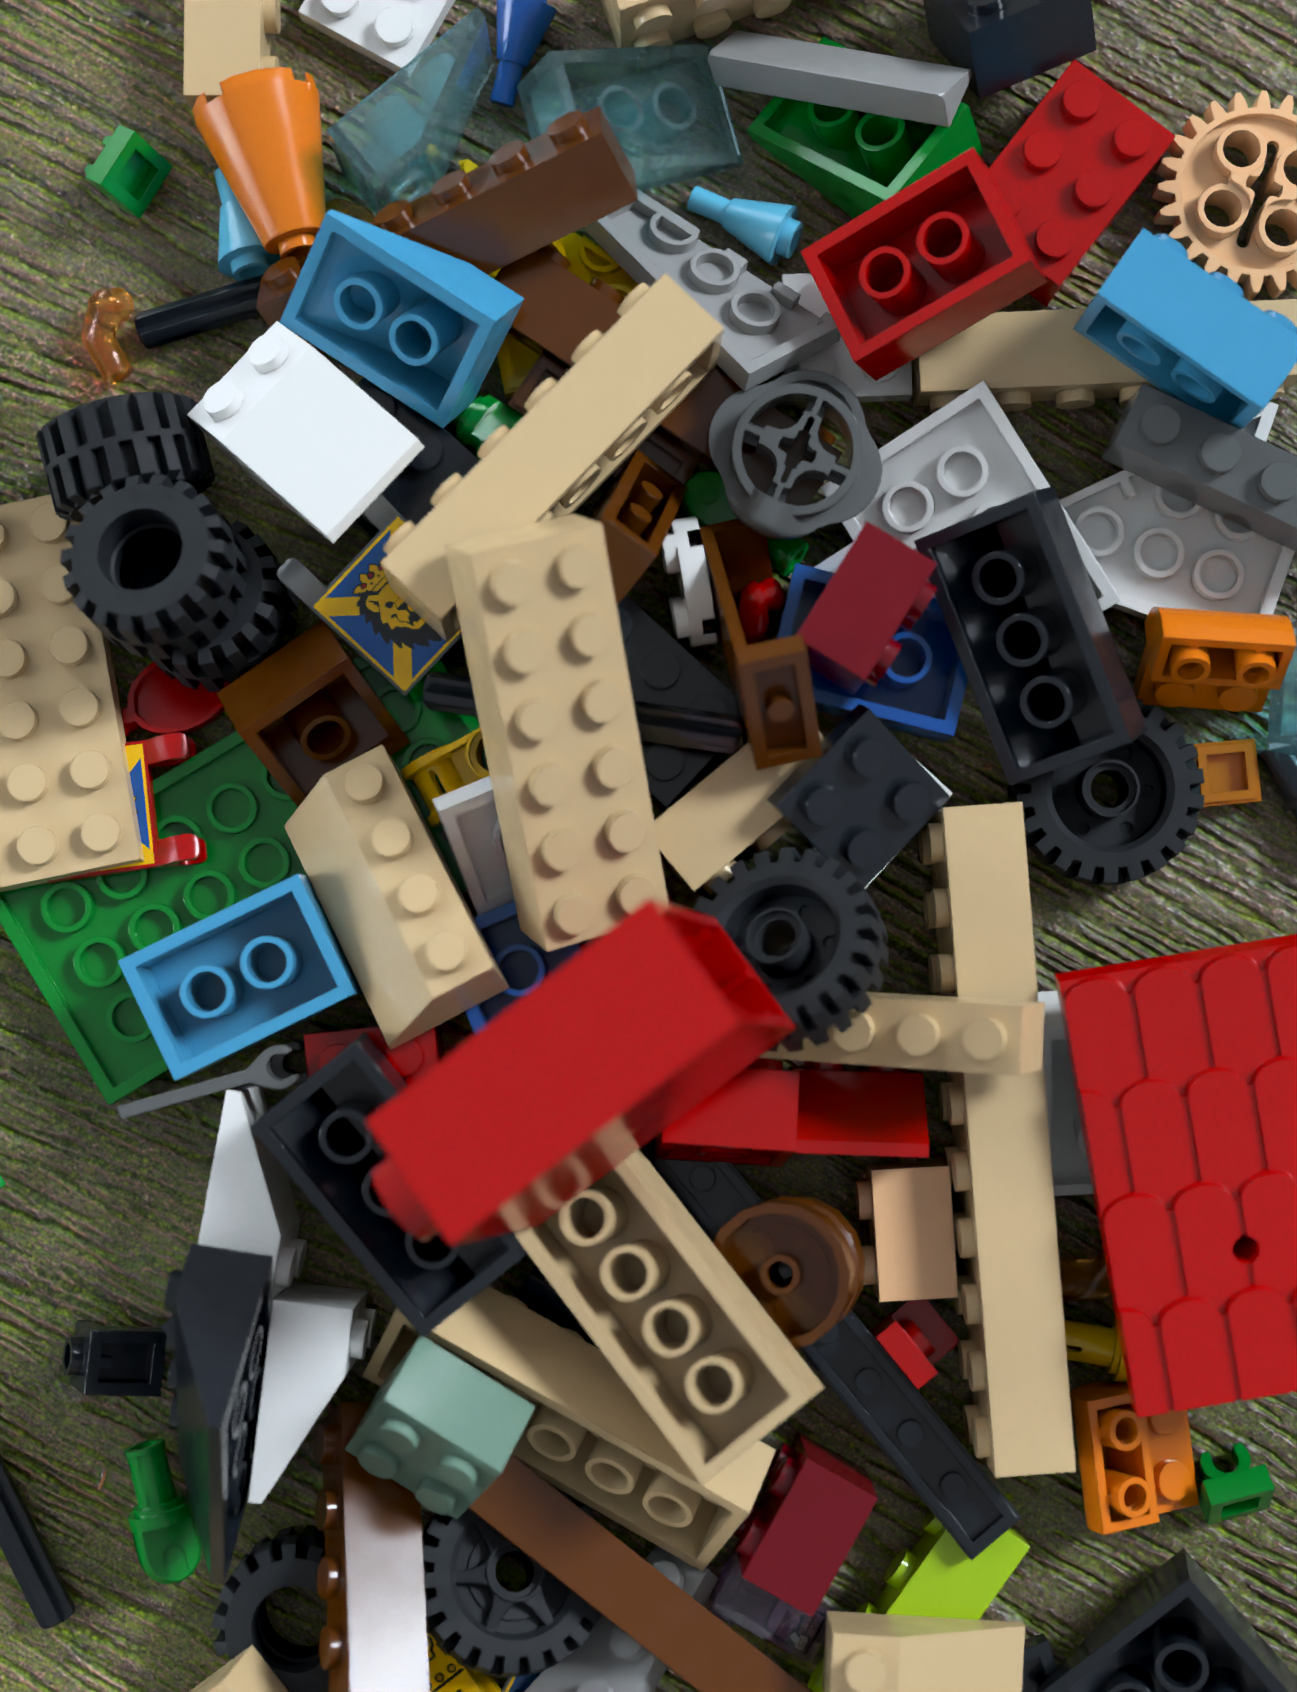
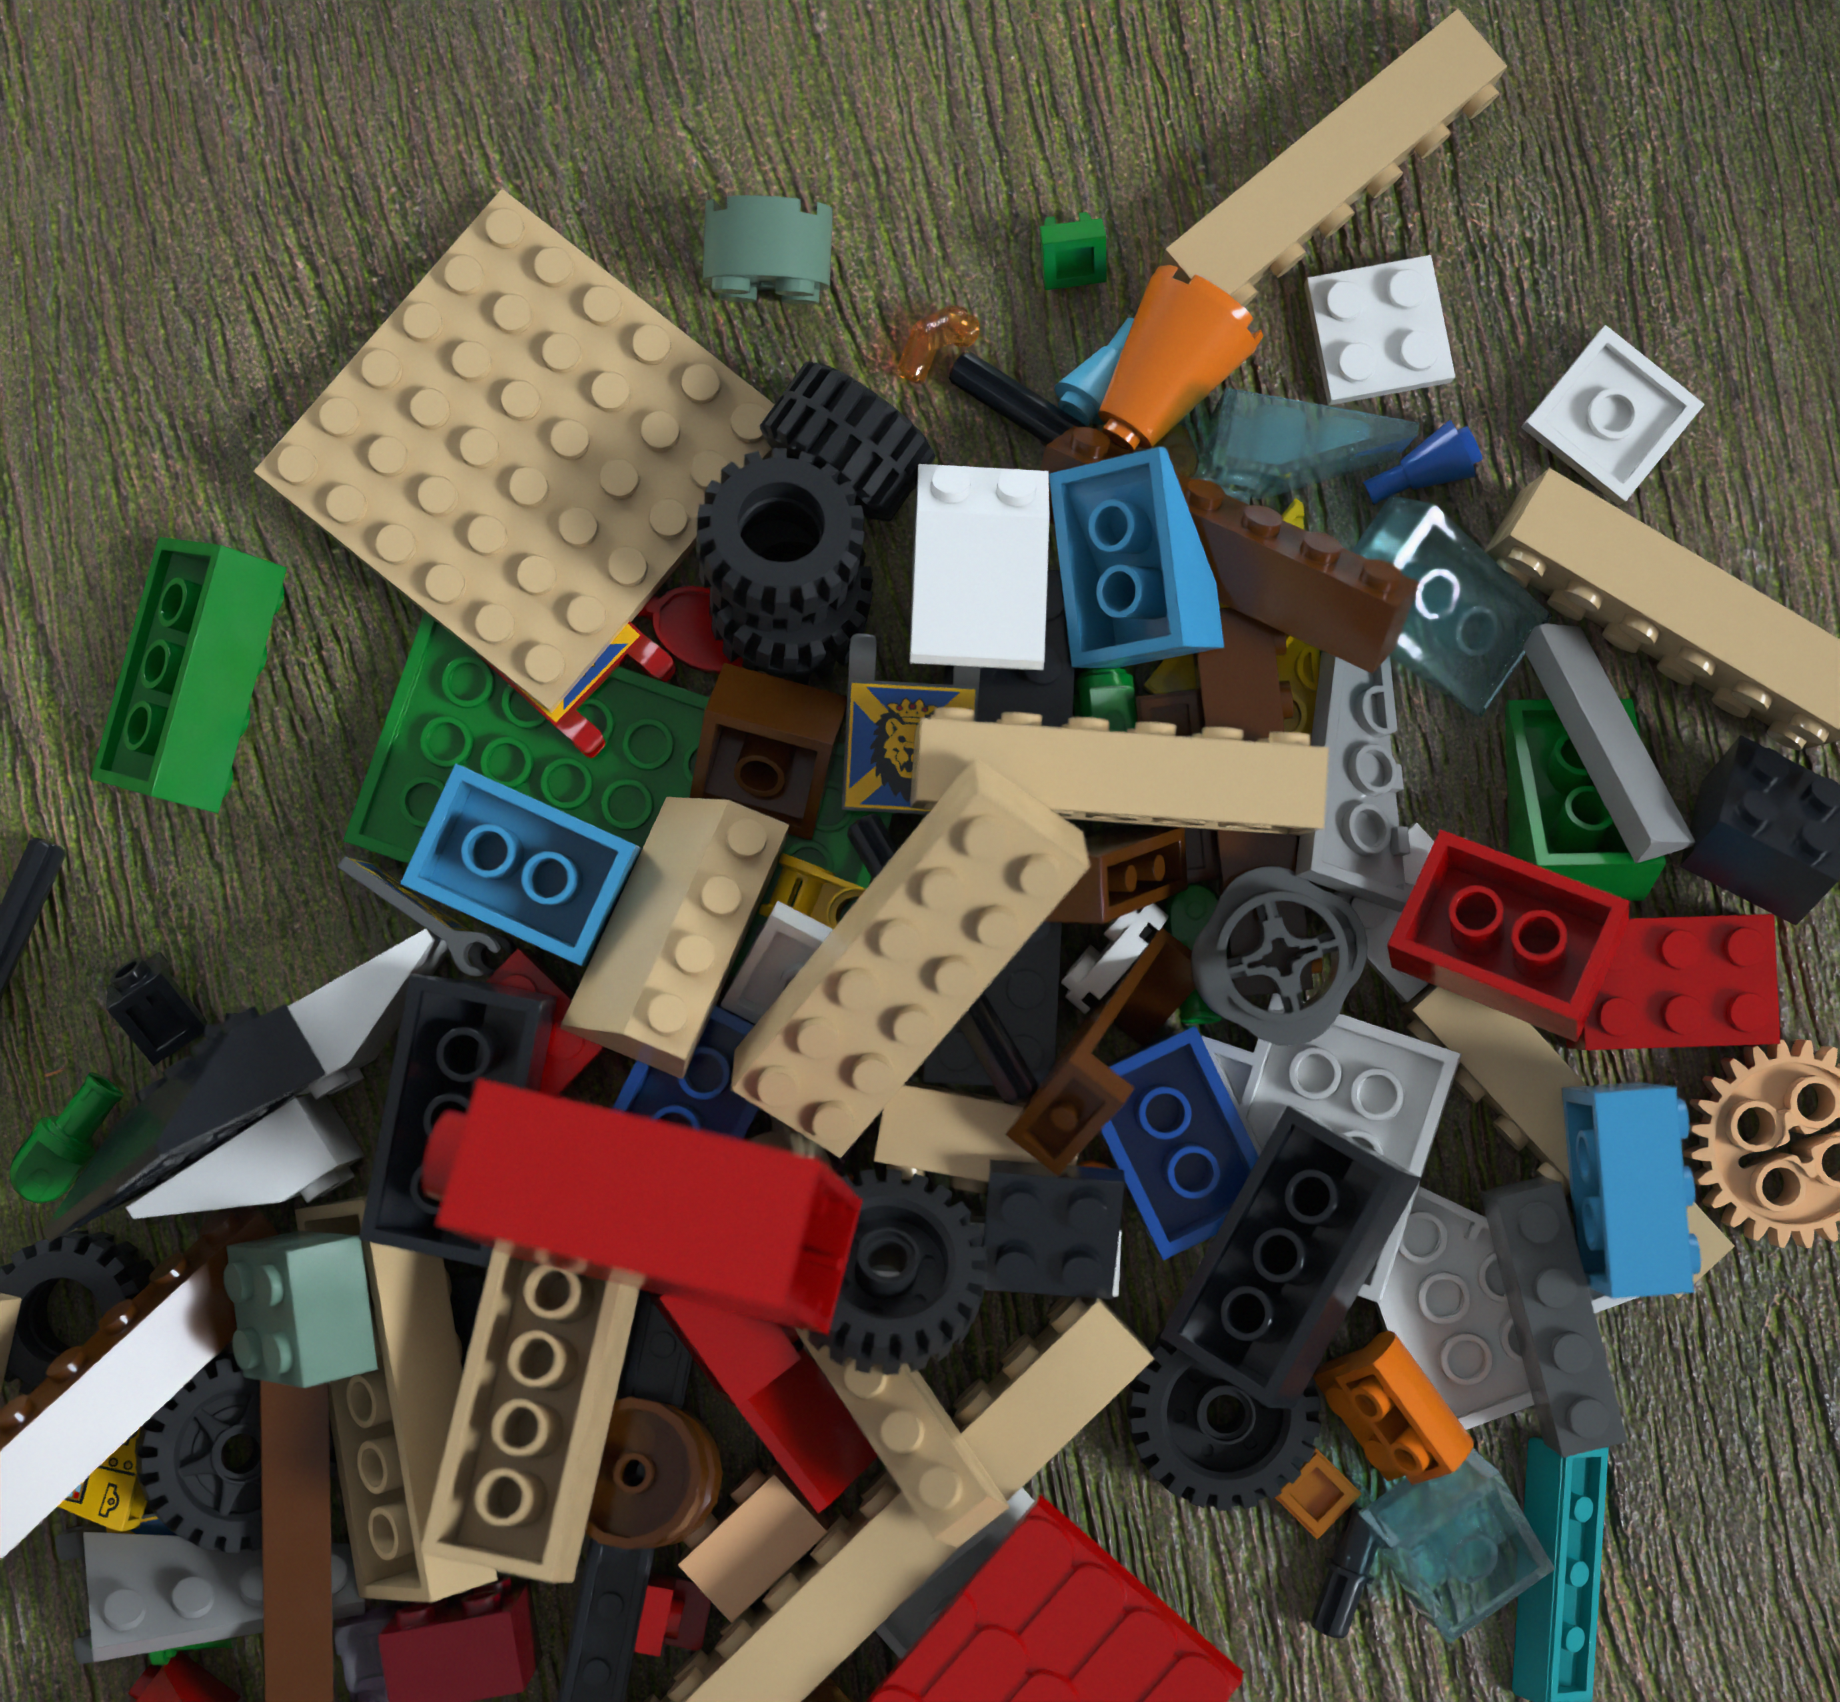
camera: 50 degrees right, 0 degrees up
(755, 605) = (1135, 1020): red arm -> none
(763, 227) = (1440, 774): medium azure cone -> none
(864, 603) = (1199, 1114): dark red brick -> none

